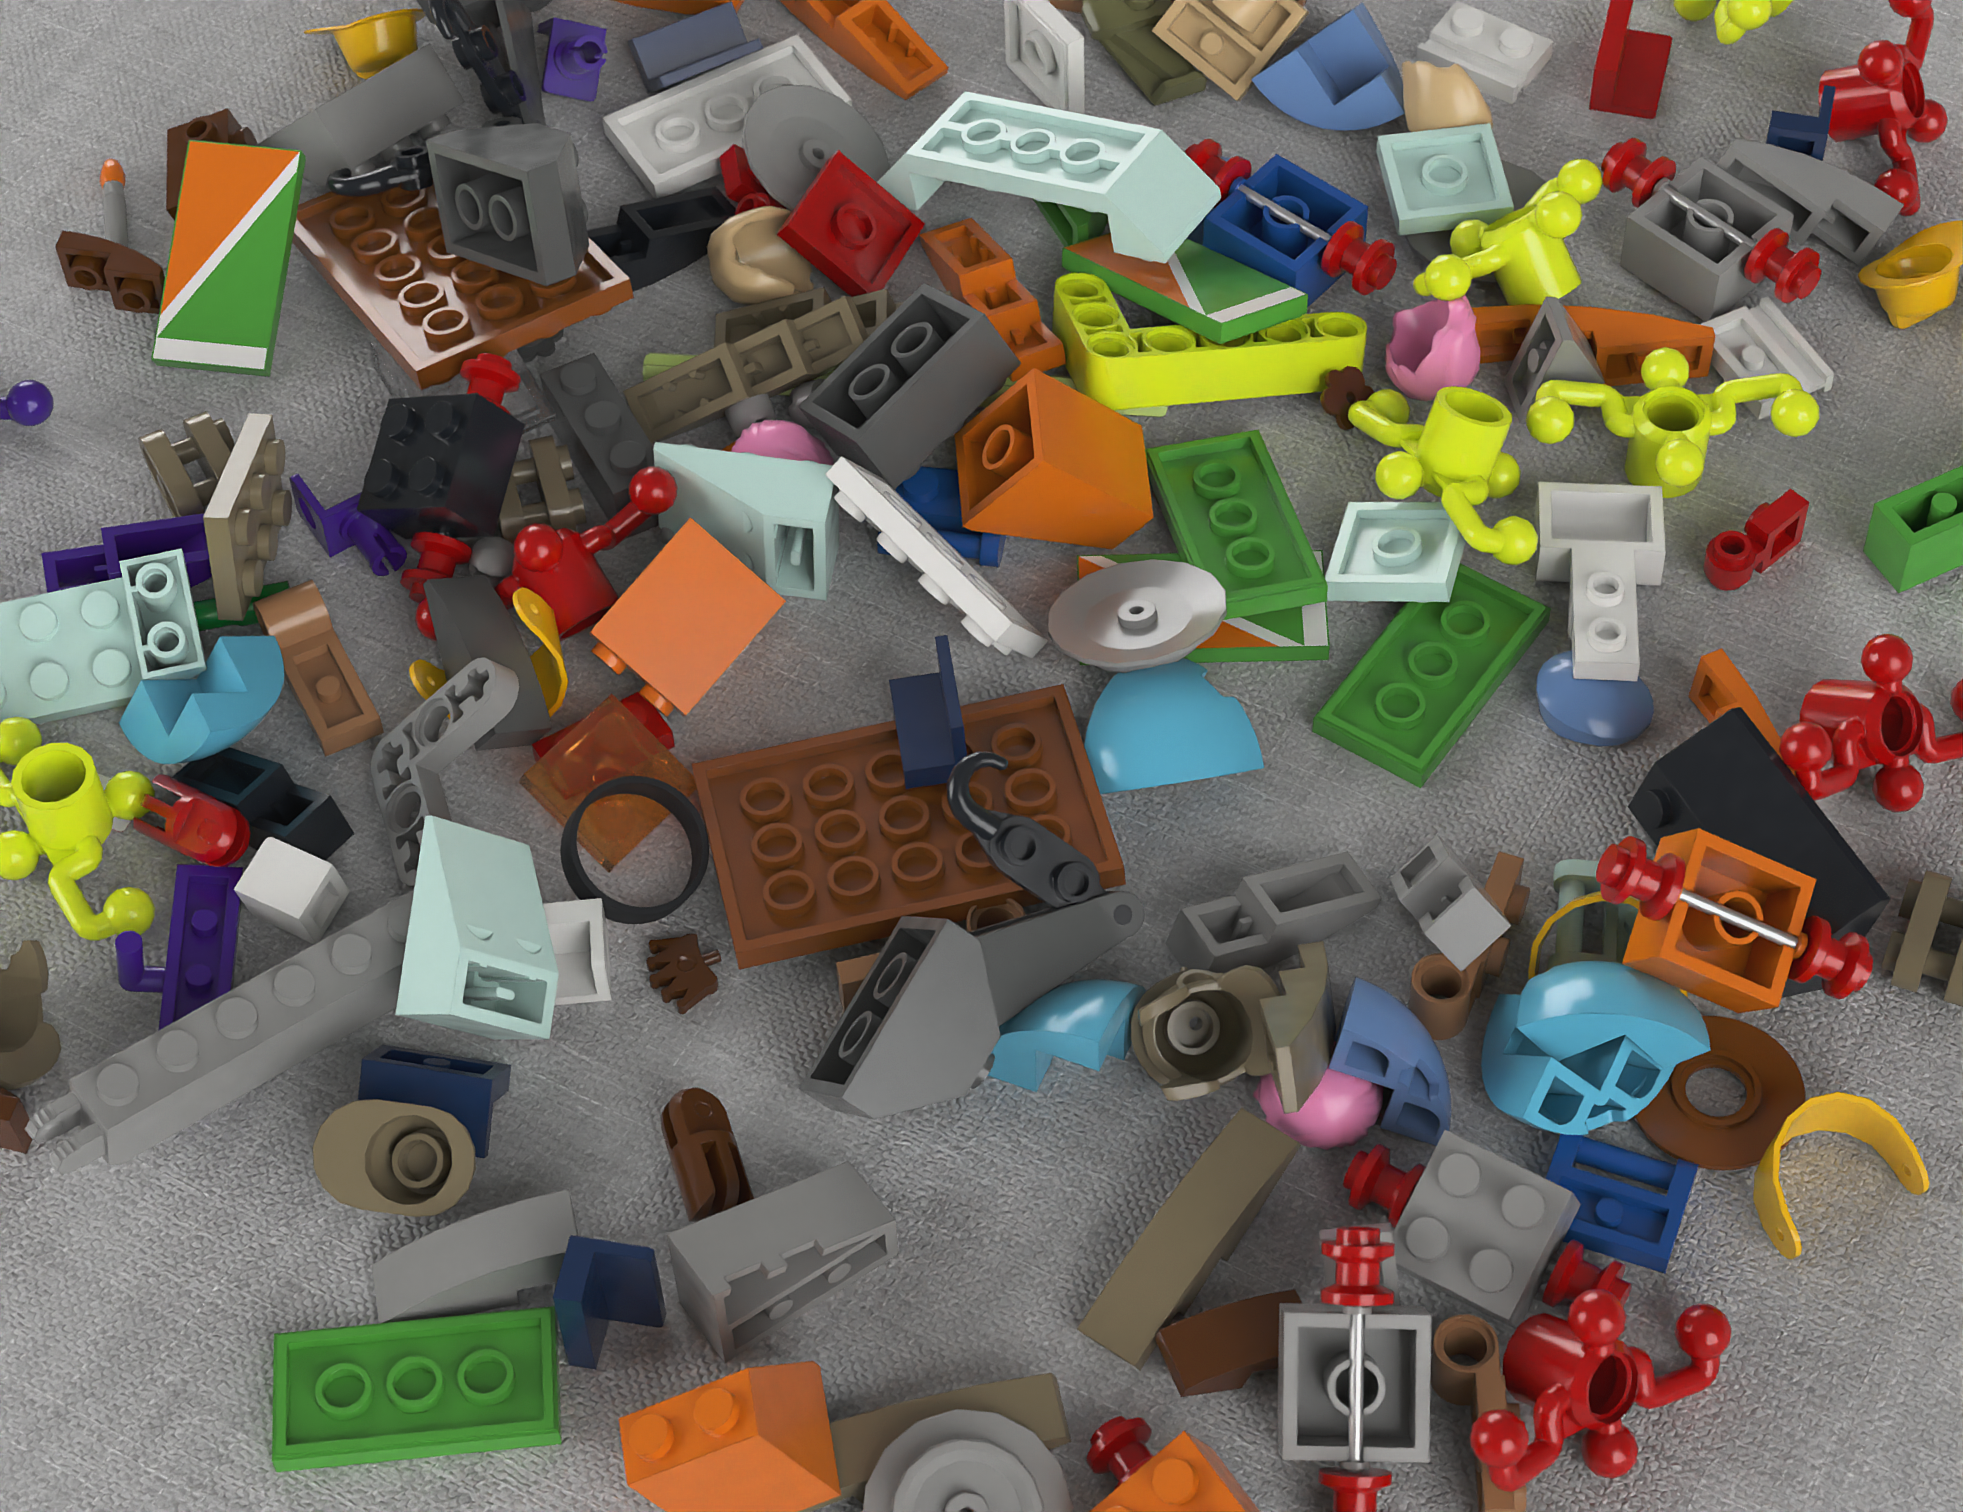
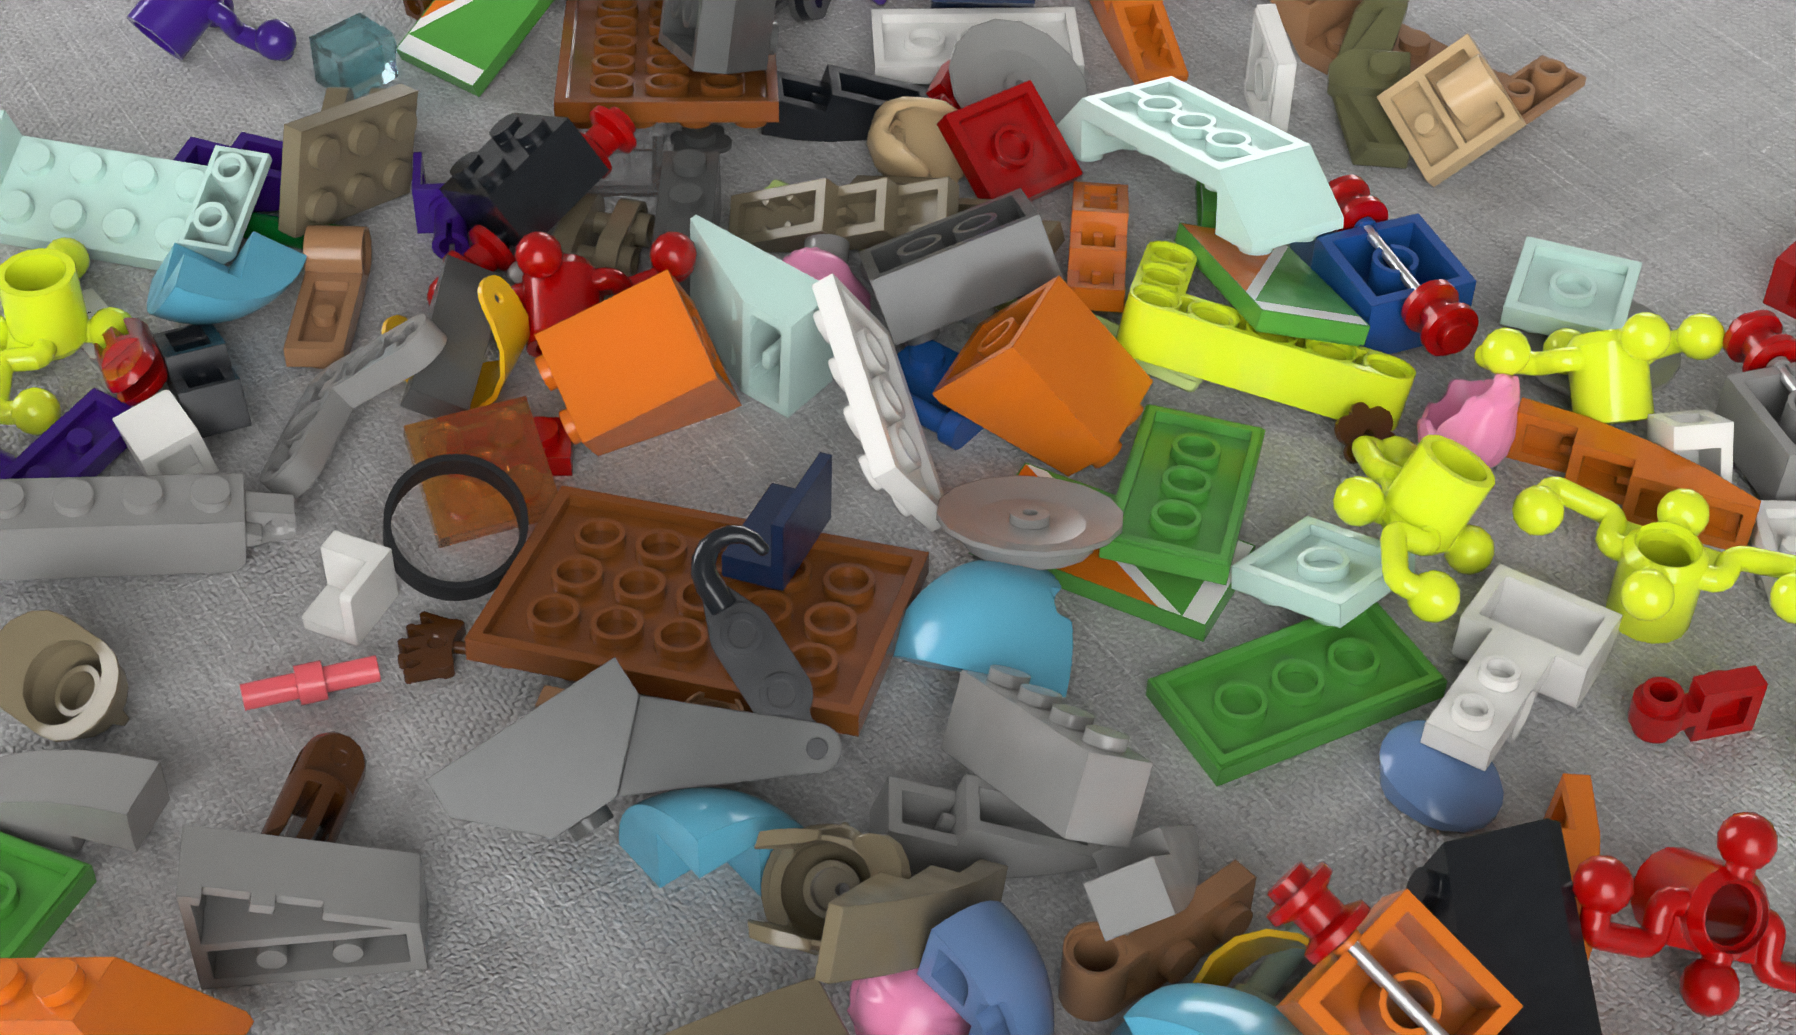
camera: 25 degrees right, 10 degrees down
(120, 387) = (354, 55): none -> clear light blue brick
(439, 1081) = (148, 647): dark blue panel -> none
(478, 937) = (253, 524): light aqua slope -> none
(604, 1284) = (110, 863): dark blue panel -> none
(606, 1054) = (310, 682): none -> coral bar
(1310, 834) = (1047, 756): none -> light grey brick
(1337, 77) = (1529, 190): medium blue brick -> none
(1441, 97) = (1611, 227): tan hair -> none
(1490, 50) = (1687, 224): white plate -> none
(1550, 351) = (1590, 457): light grey slope -> none
(1628, 286) = (1697, 437): none -> white panel

